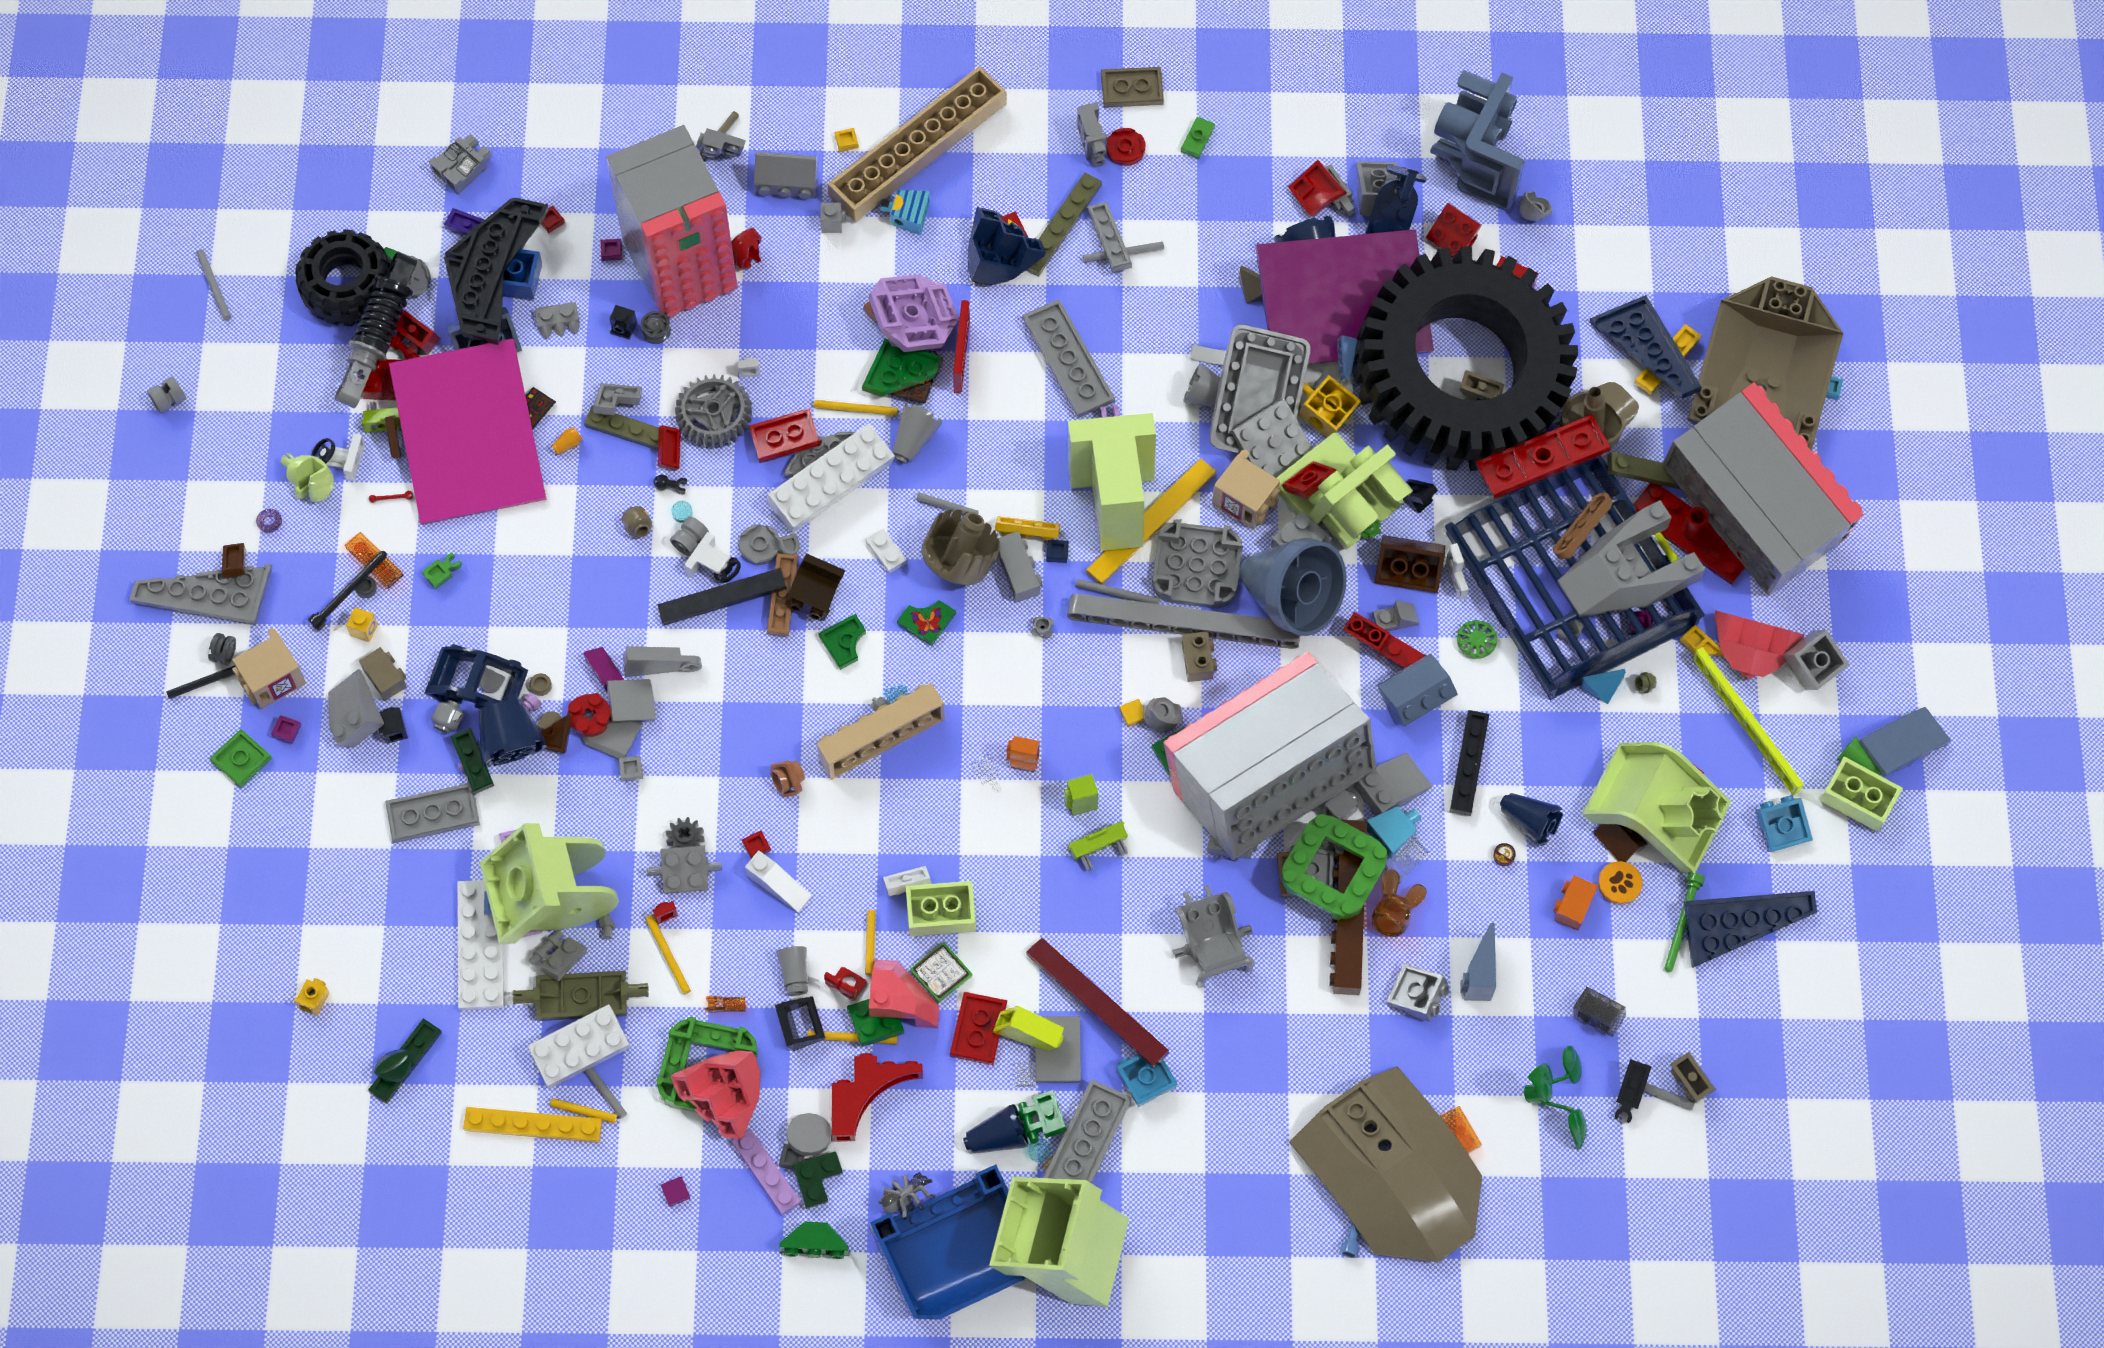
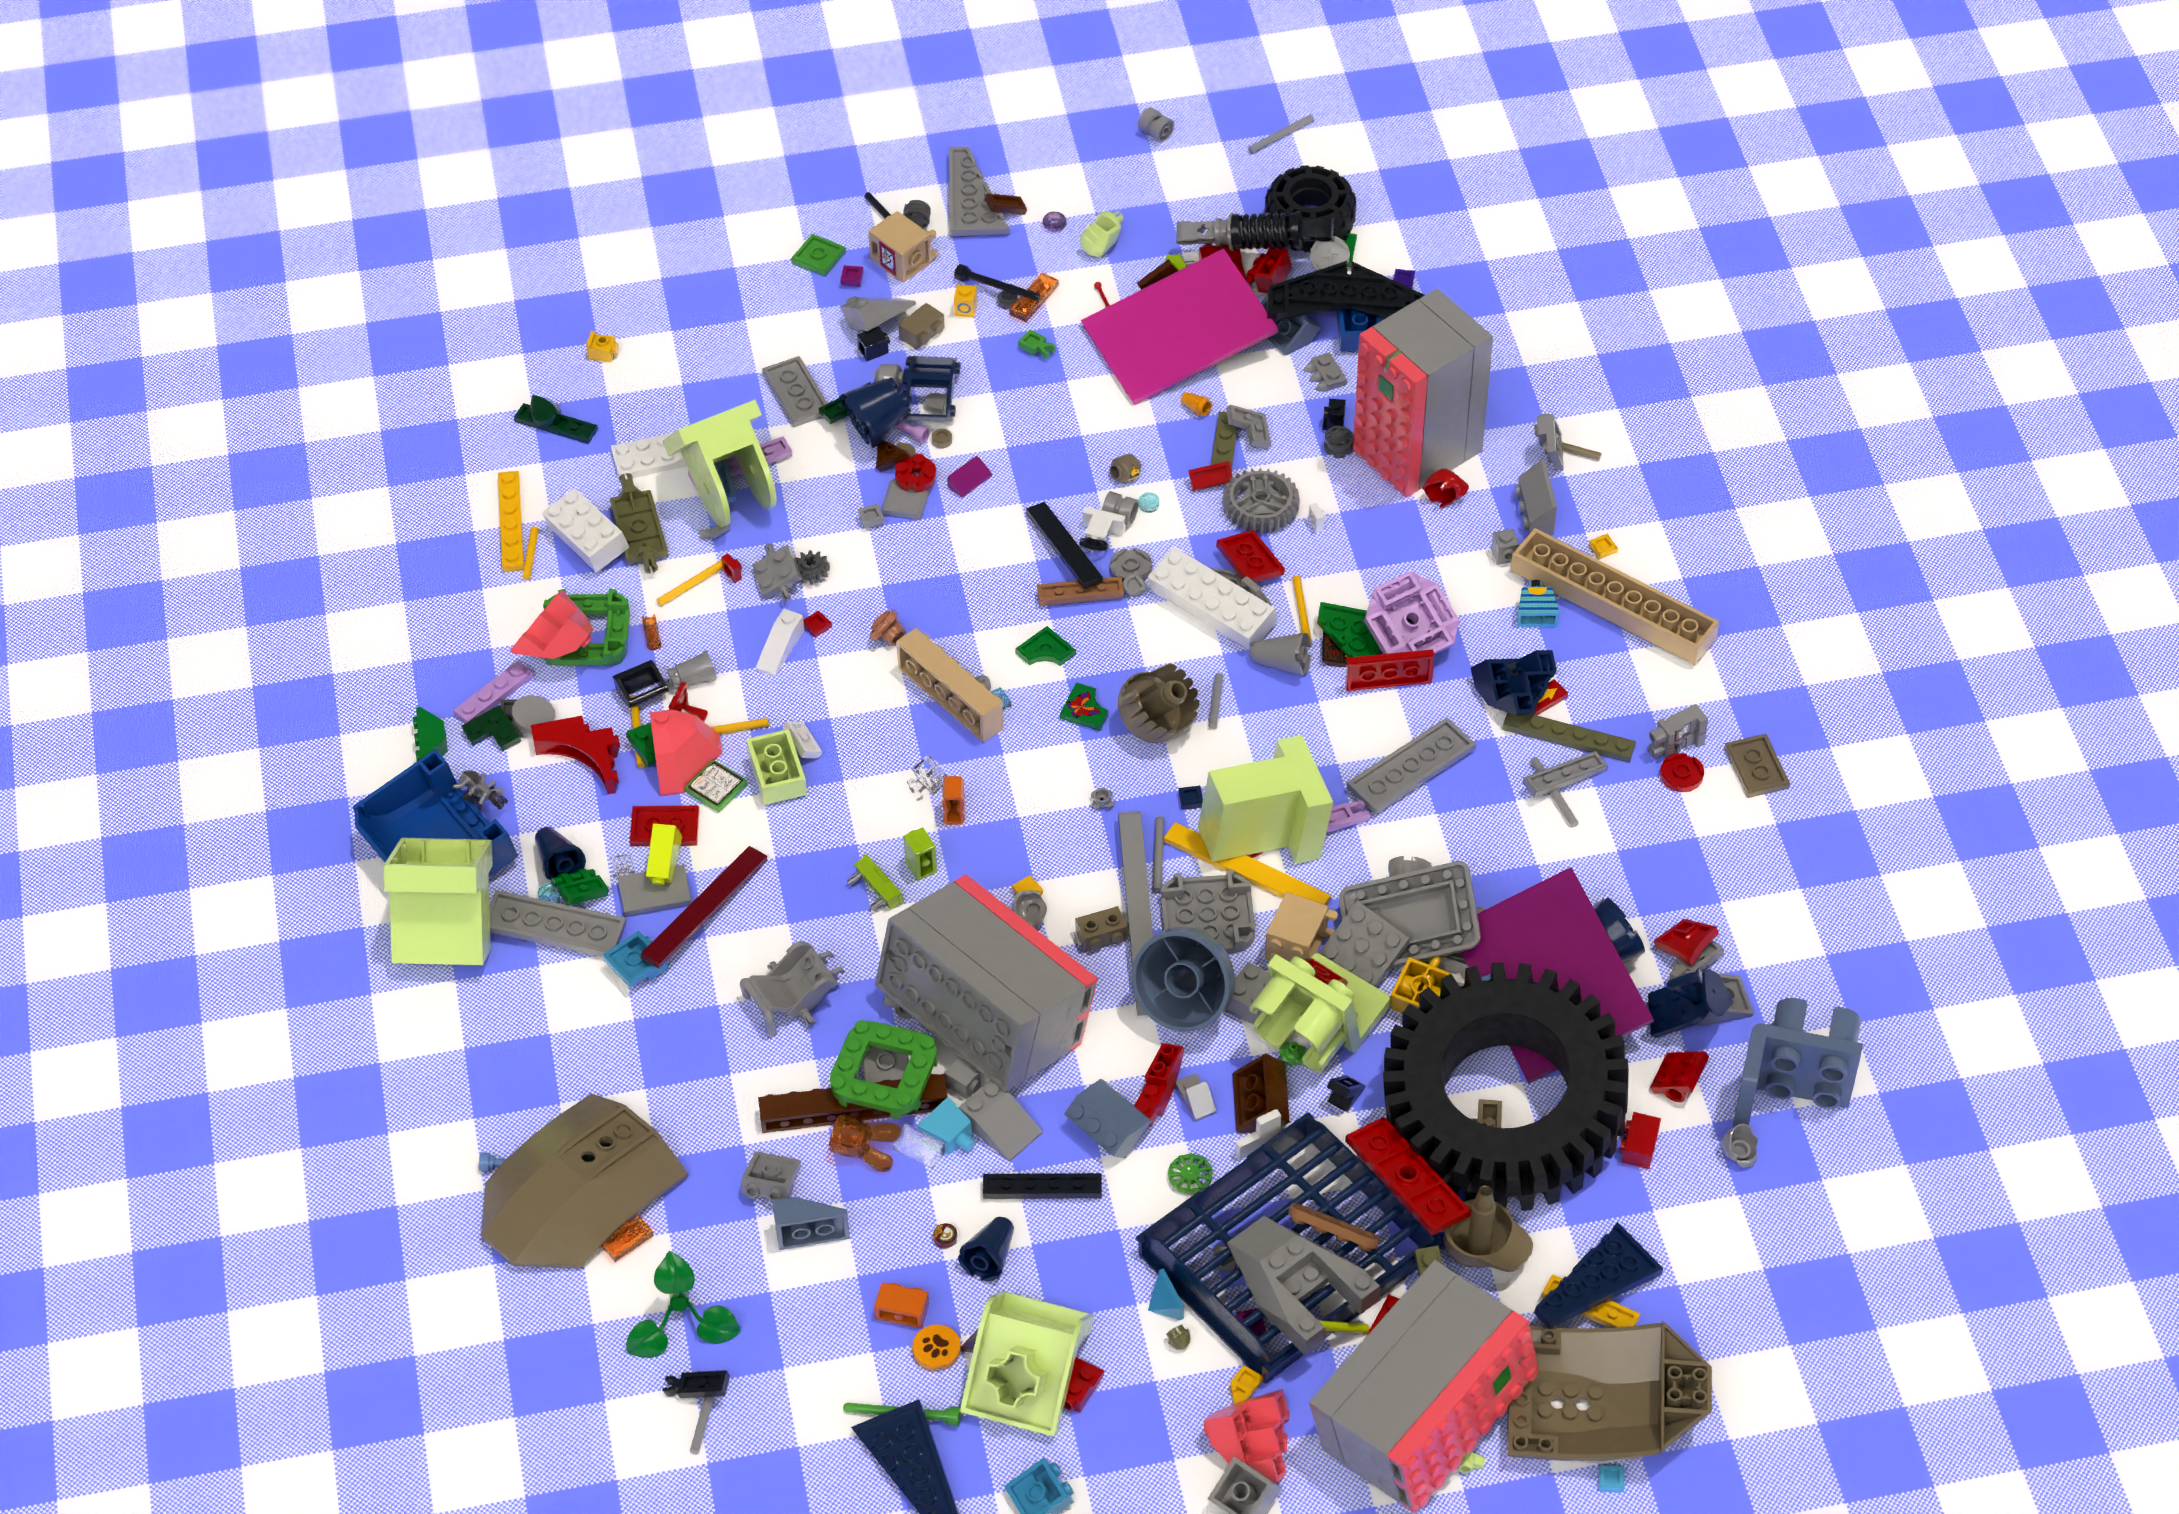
camera: 80 degrees right, 15 degrees down
(342, 458) = (1132, 256): white piece -> none
(460, 163) = (1465, 267): light grey hips -> none
(538, 405) = (1226, 374): piece -> none
(563, 958) = (671, 505): light grey plate -> none
(605, 1091) = (550, 566): light grey bar -> none
(631, 700) = (938, 499): light grey slope -> none
(657, 660) = (982, 507): light grey piece -> none
(664, 483) = (1174, 480): black arm -> none
(675, 1191) = (463, 632): magenta tile -> none
(814, 587) = (1089, 611): dark brown panel -> none
(830, 441) = (1251, 586): none -> light grey tile
(886, 551) = (1152, 659): white plate -> none
(1019, 567) = (1161, 764): light grey brick -> none
(1027, 528) = (1206, 758): yellow plate -> none
(1197, 137) = (1716, 831): bright green plate -> none
(1599, 1012) = (779, 1341): clear smoke brick -> none
(1694, 1078) = (721, 1438): dark tan brick -> none
(1748, 721) = (1156, 1442): neon yellow tile -> none

